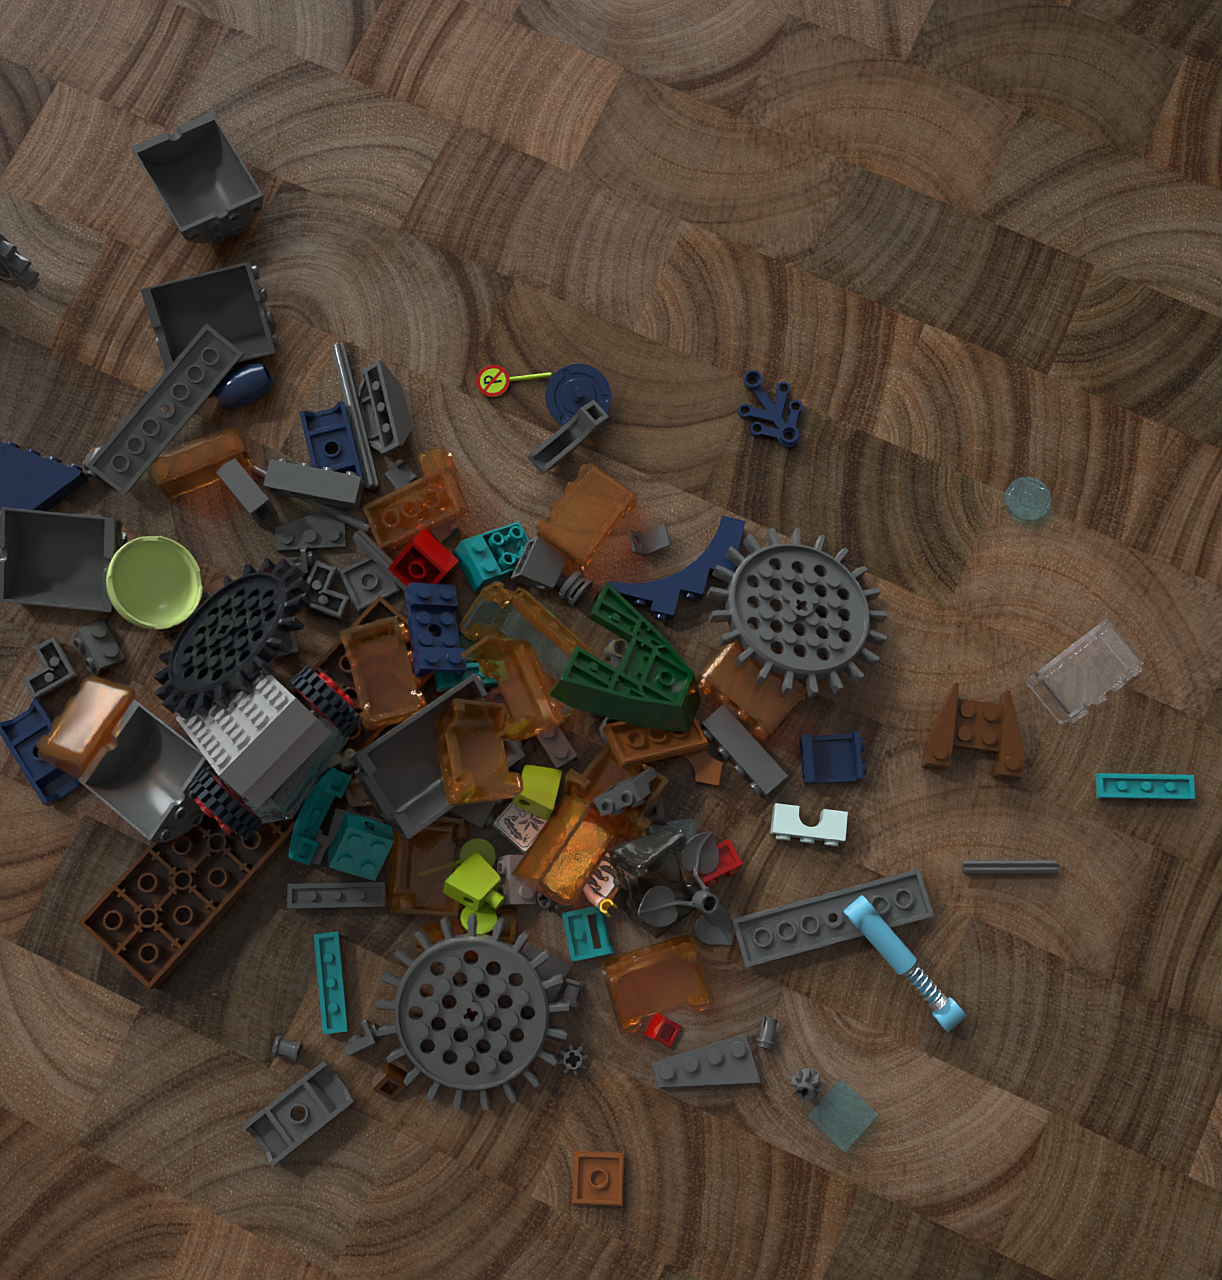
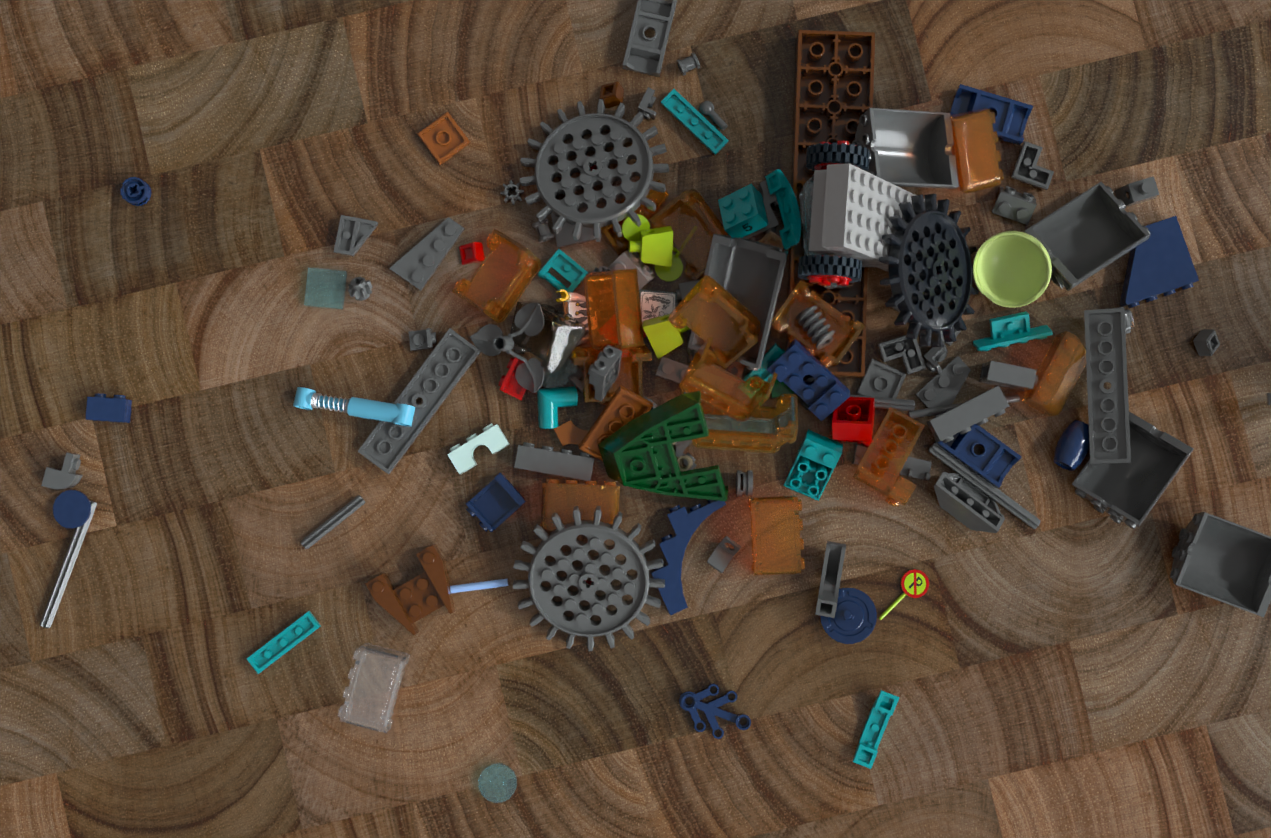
camera: 140 degrees right, 10 degrees up
(42, 384) = (1206, 342): none -> dark grey slope
(206, 532) = (1011, 330): none -> teal bracket
(307, 987) = (707, 109): none -> dark grey bar
(336, 895) = (734, 174): dark grey plate -> none
(343, 762) = (794, 255): dark tan piece -> none
(385, 672) = (815, 327): none -> dark grey piece
(540, 566) = (778, 478): dark grey torso -> none
(637, 285) = (874, 728): none -> teal slope
(700, 814) = (548, 402): none -> teal brick
(767, 1033) = (407, 301): dark grey pin -> none
(771, 1149) = (352, 234): none -> dark grey wing
(782, 980) = (422, 339): none -> dark grey bracket
(907, 692) = (479, 585): none -> light blue bar
(1165, 1167) = (108, 409): none -> dark blue brick

